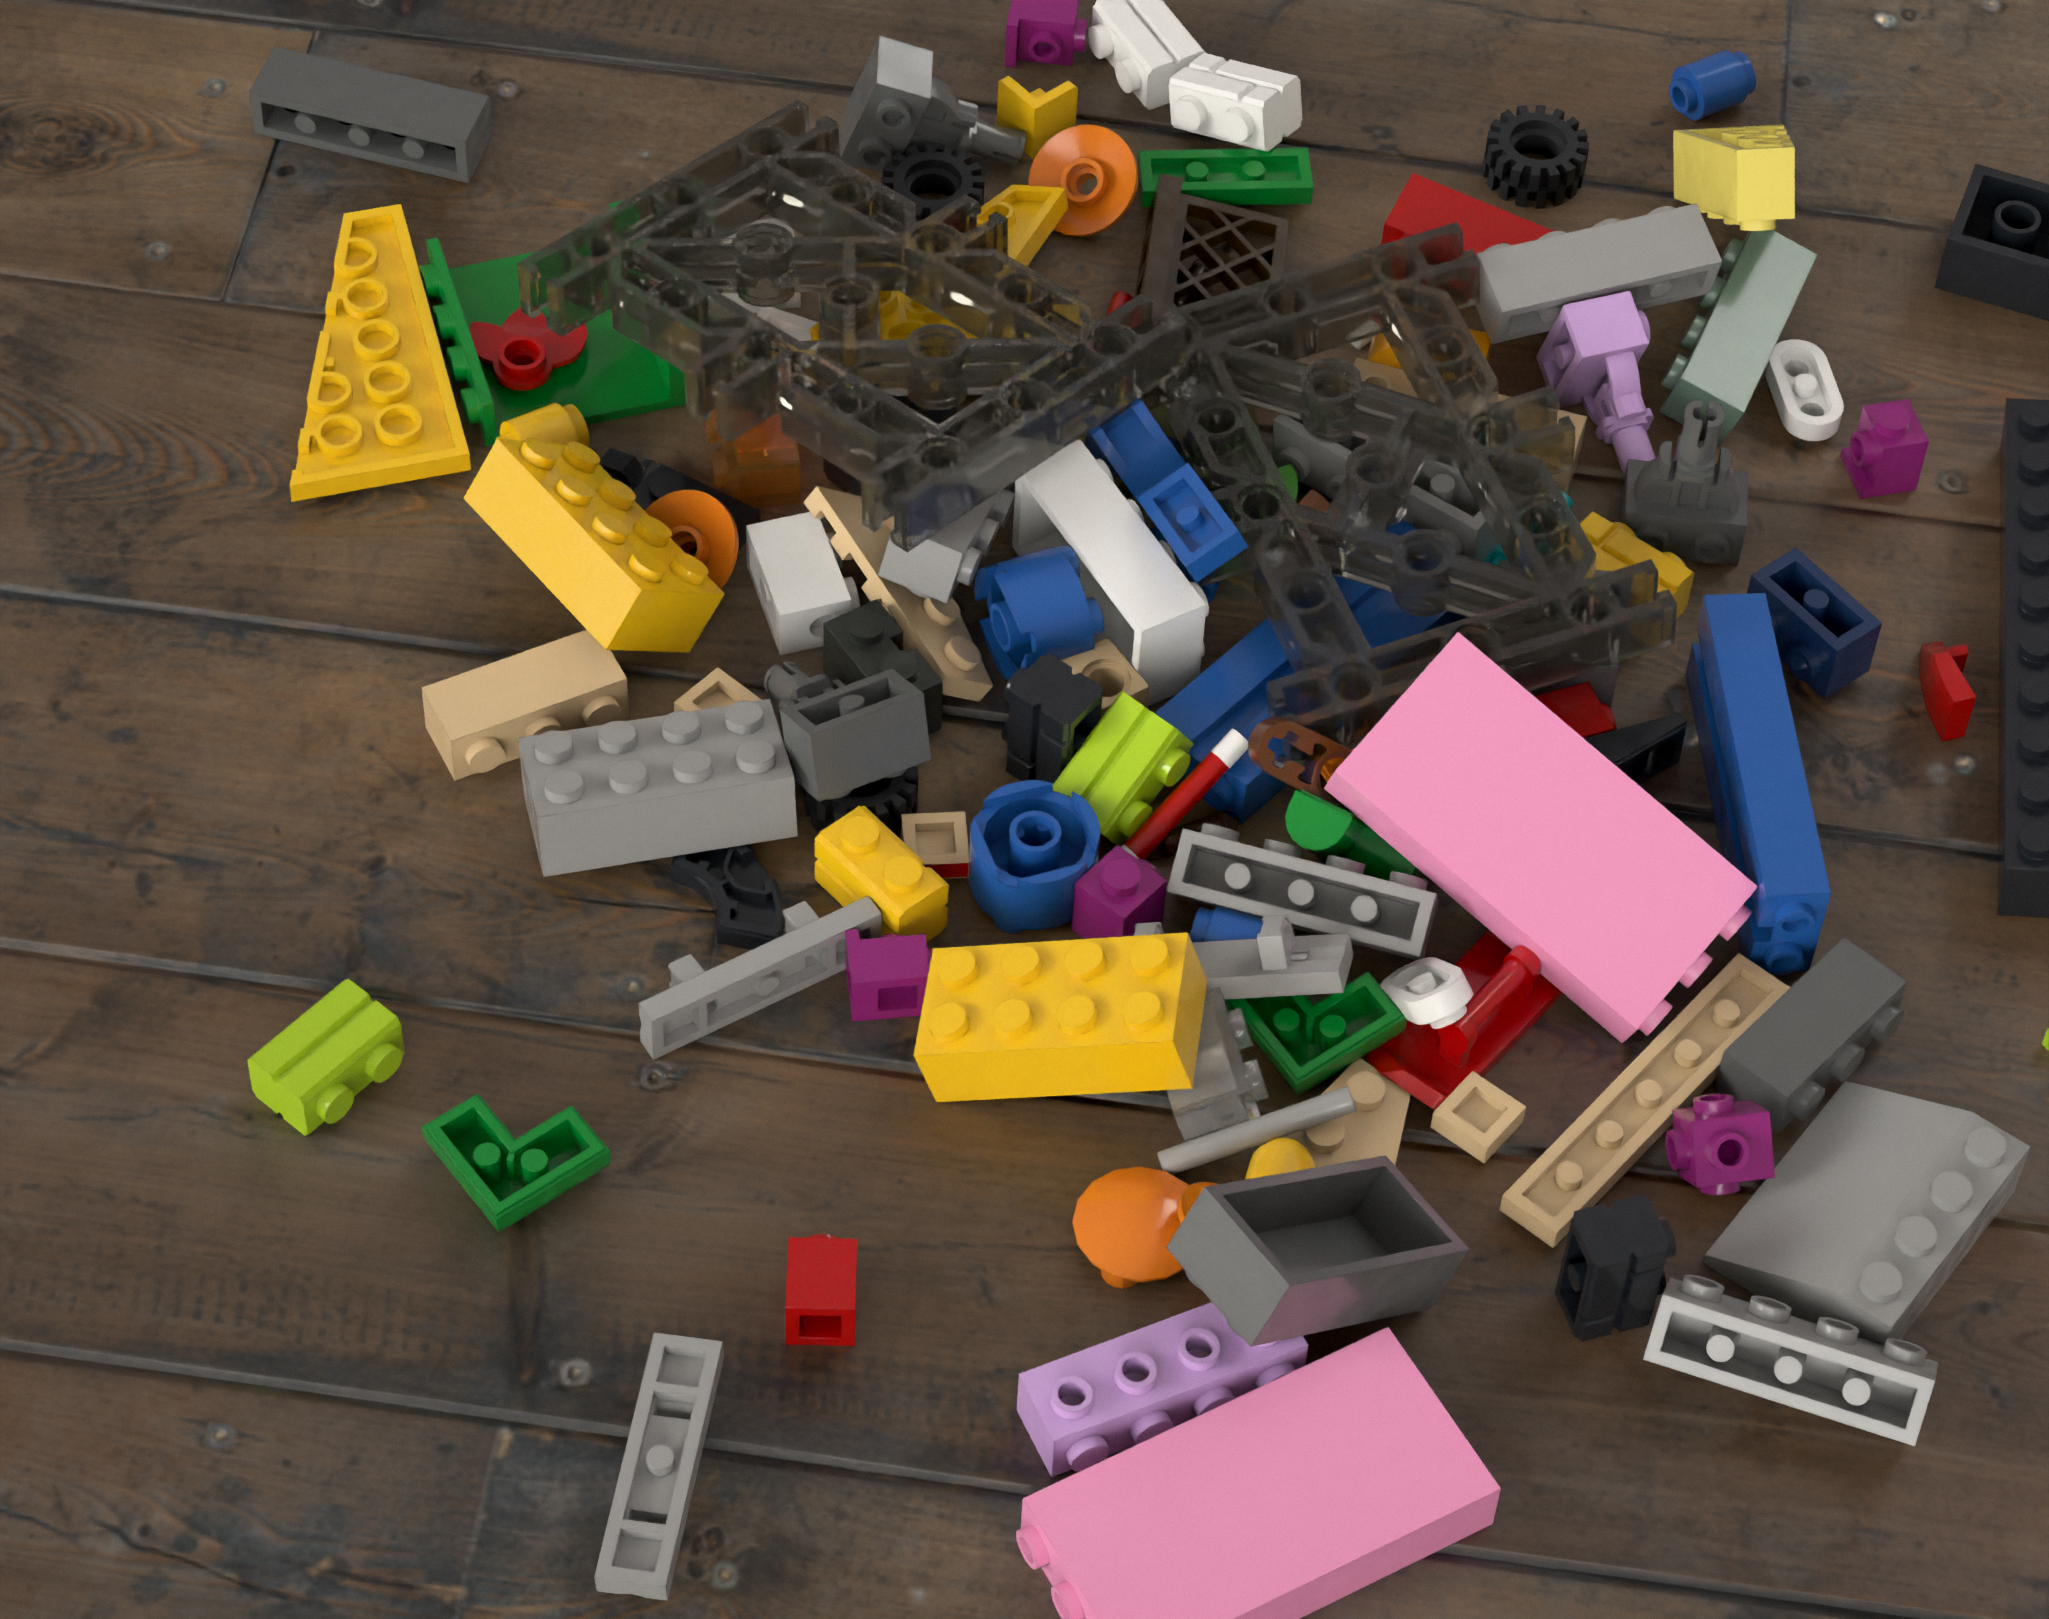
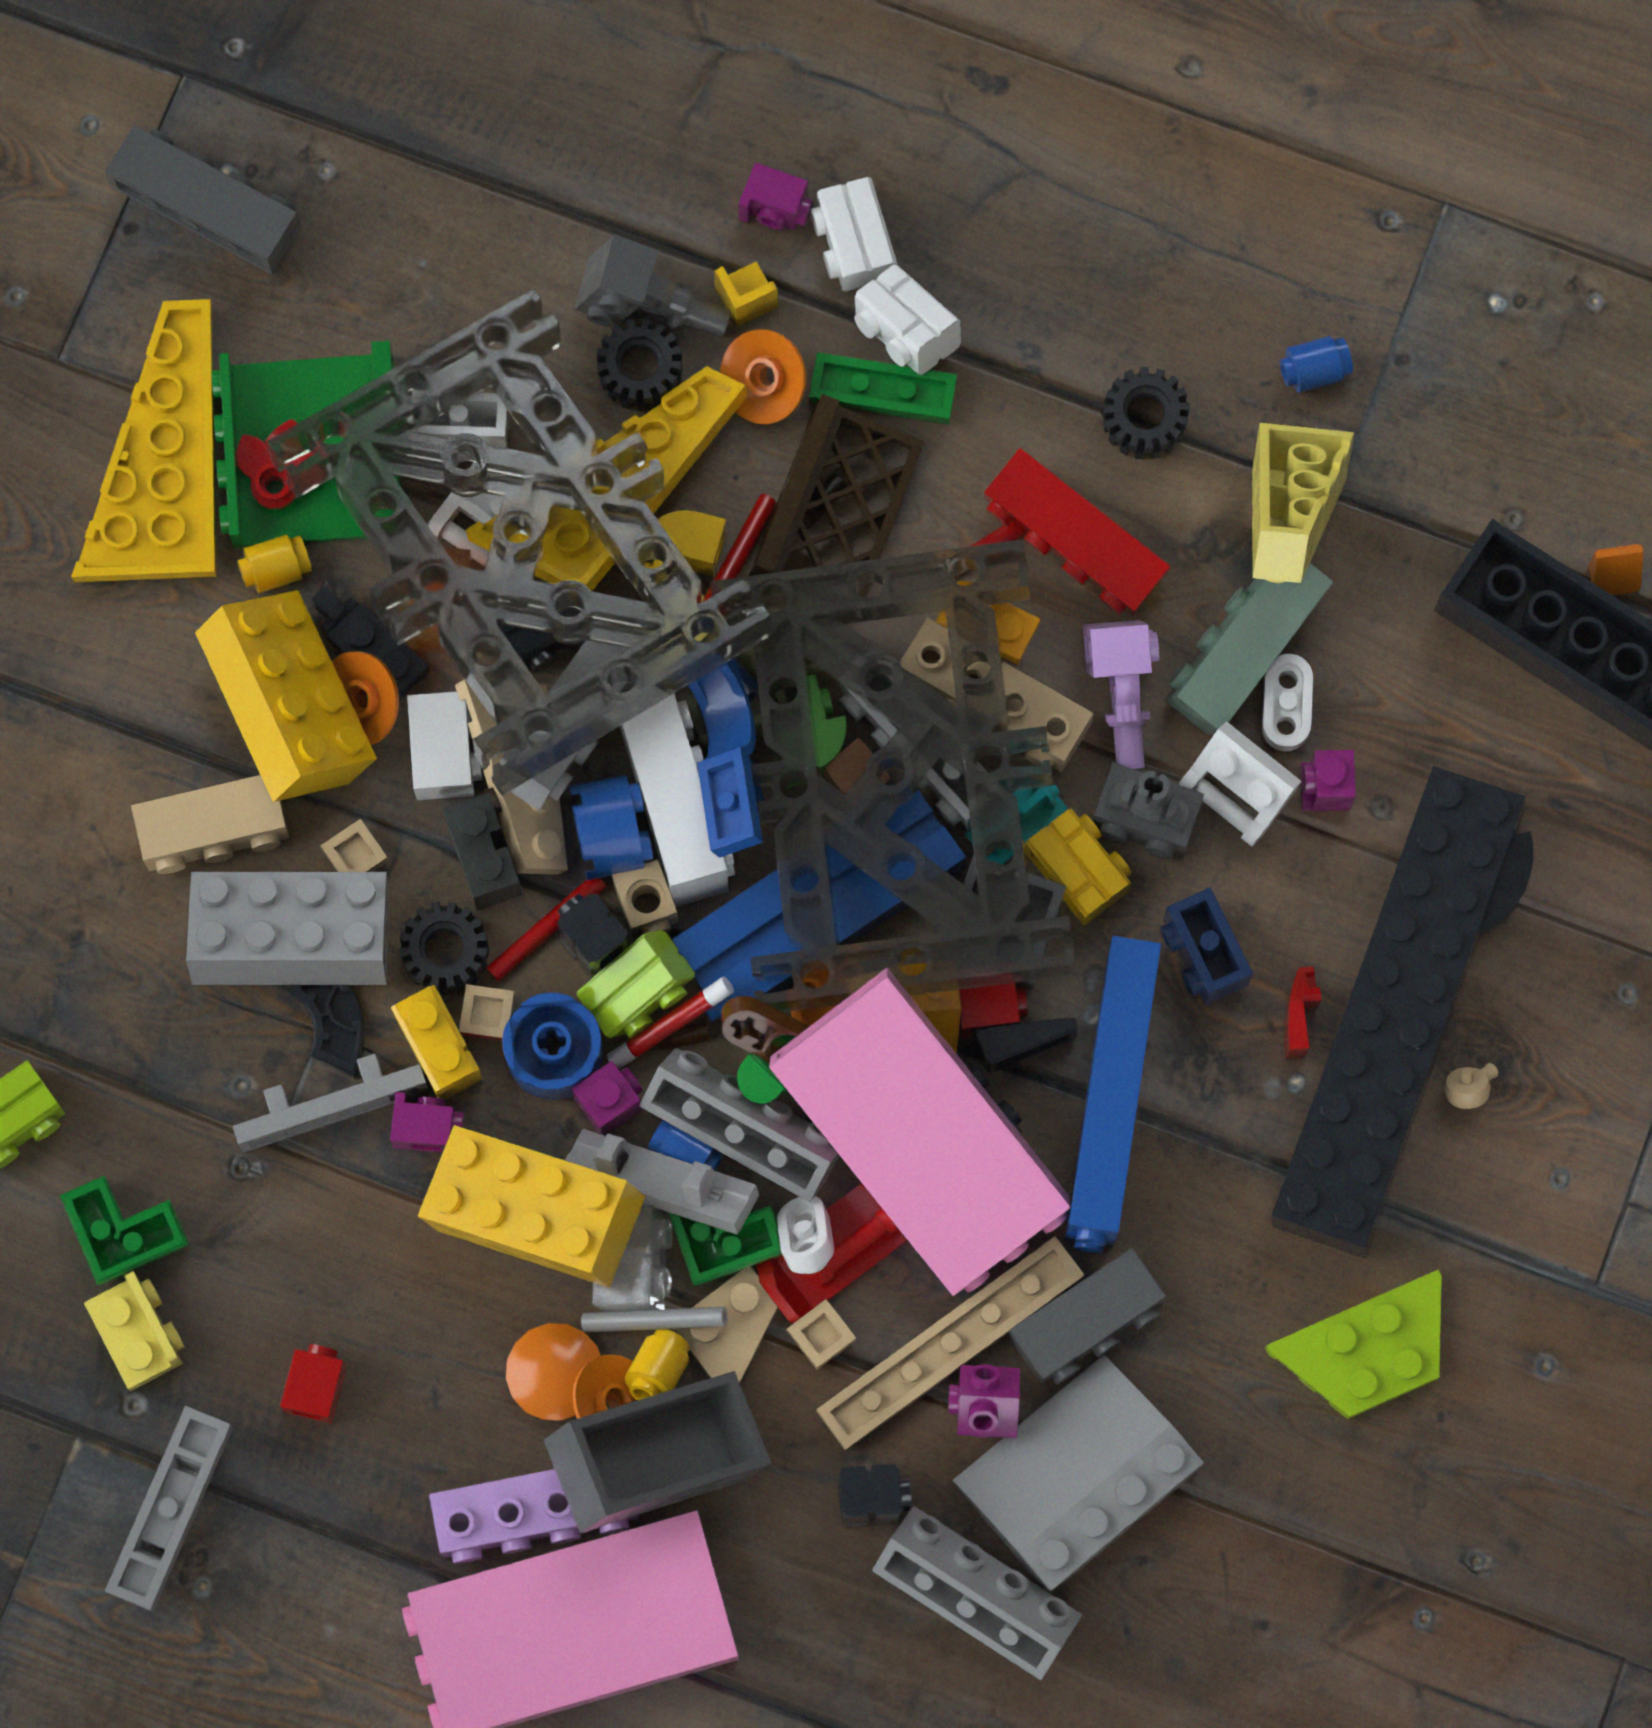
camera: 15 degrees right, 25 degrees up
(561, 1275) = (134, 1331): none -> light yellow bracket
(848, 731) = (433, 919): dark grey brick -> none
(966, 767) = (538, 933): none -> red bar
(1652, 256) = (1130, 590): light grey brick -> none
(1796, 449) = (1248, 774): none -> white plate

